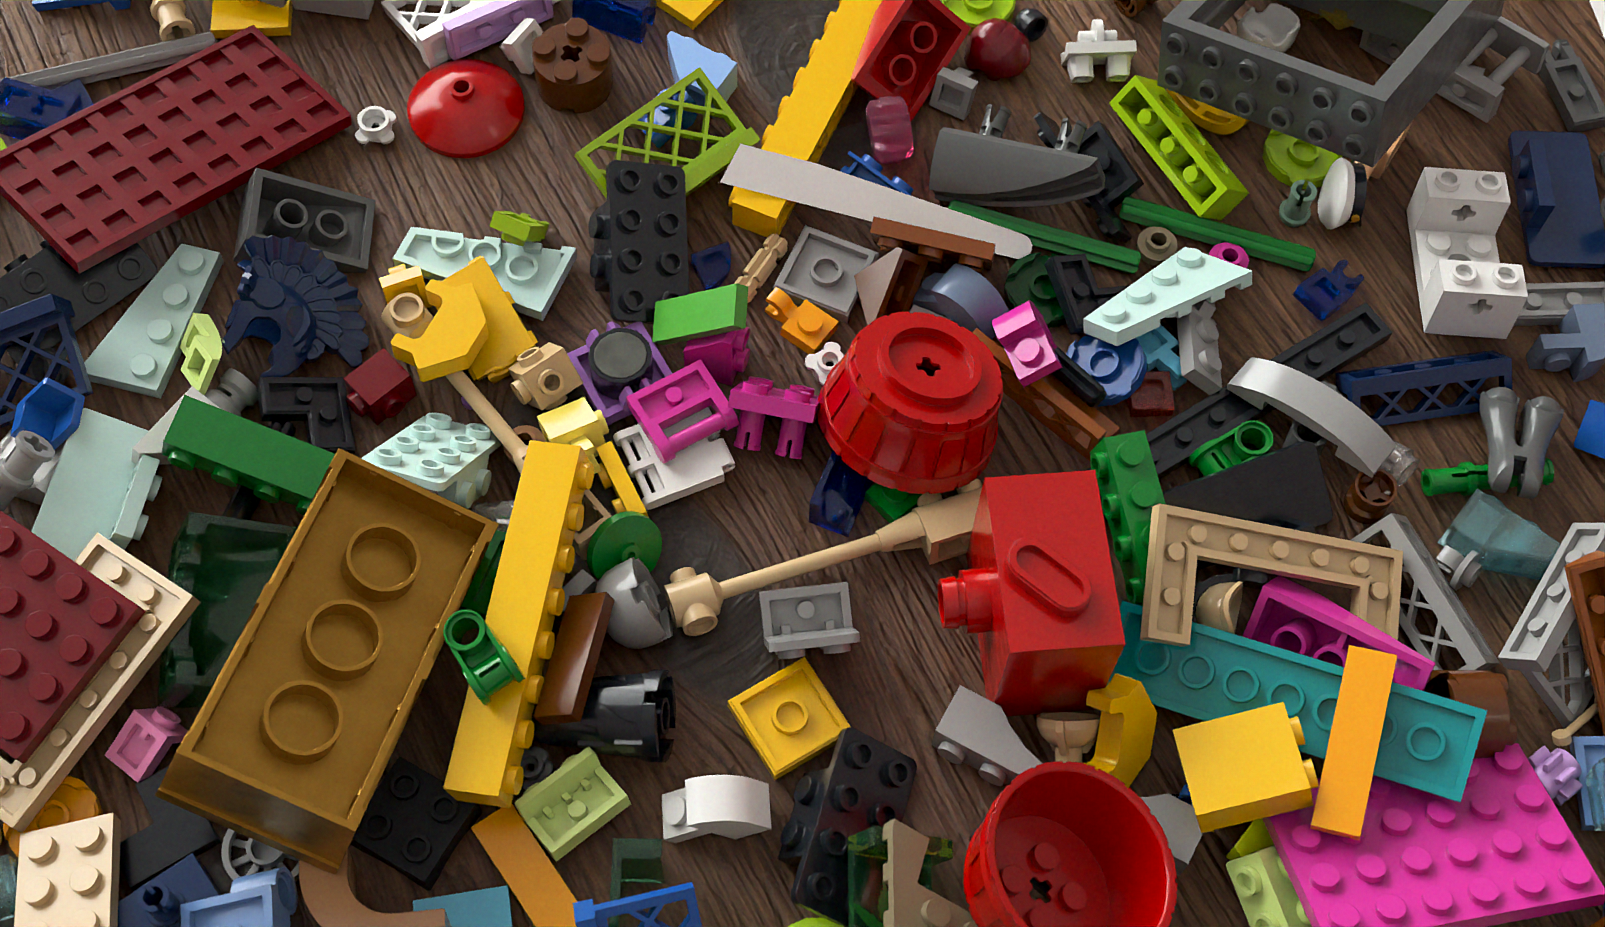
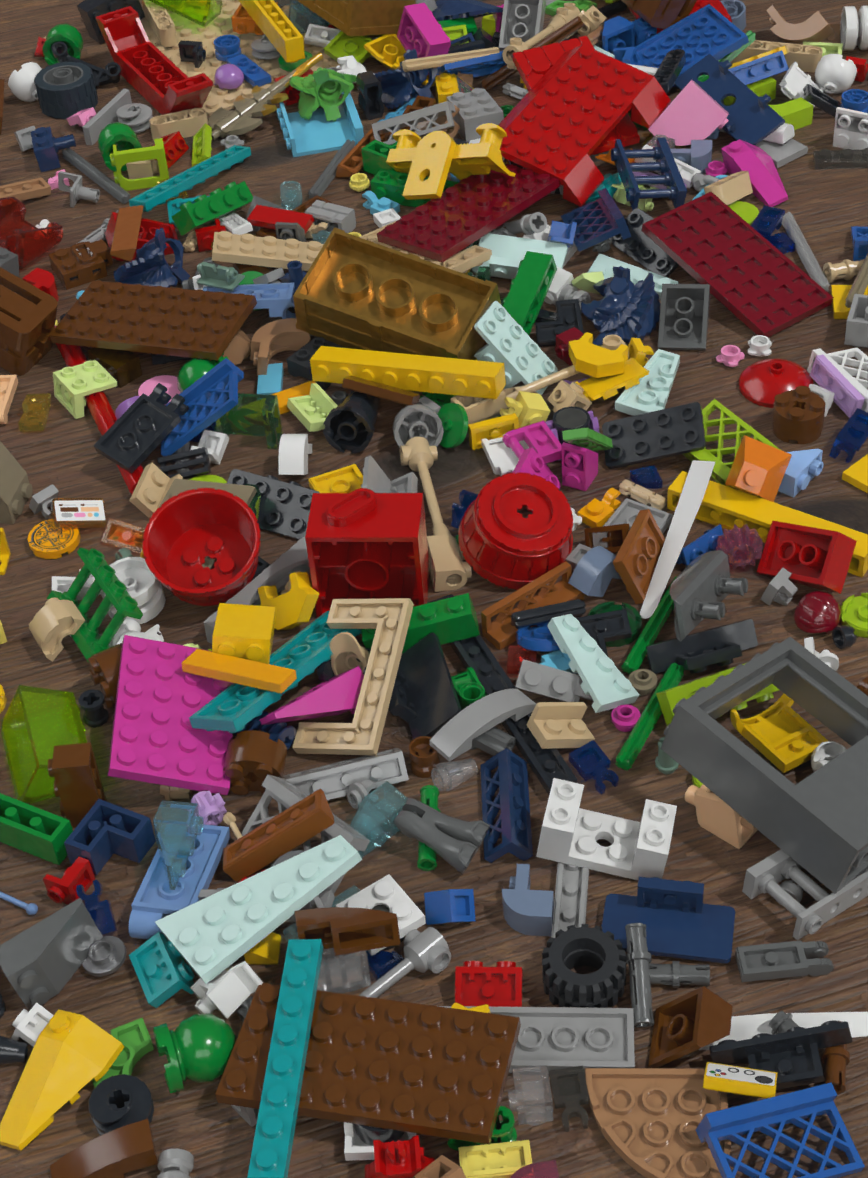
camera: 105 degrees right, 20 degrees down
(397, 156) = (730, 355): none -> bright pink plate
(486, 660) = (382, 343): green piece -> none
(518, 228) = (671, 388): lime plate -> none
(751, 96) = (758, 469): none -> orange slope
(1027, 342) = (564, 582): dark pink brick -> none
(1284, 327) = (559, 725): none -> tan bracket
(1343, 194) = (666, 779): white piece -> none

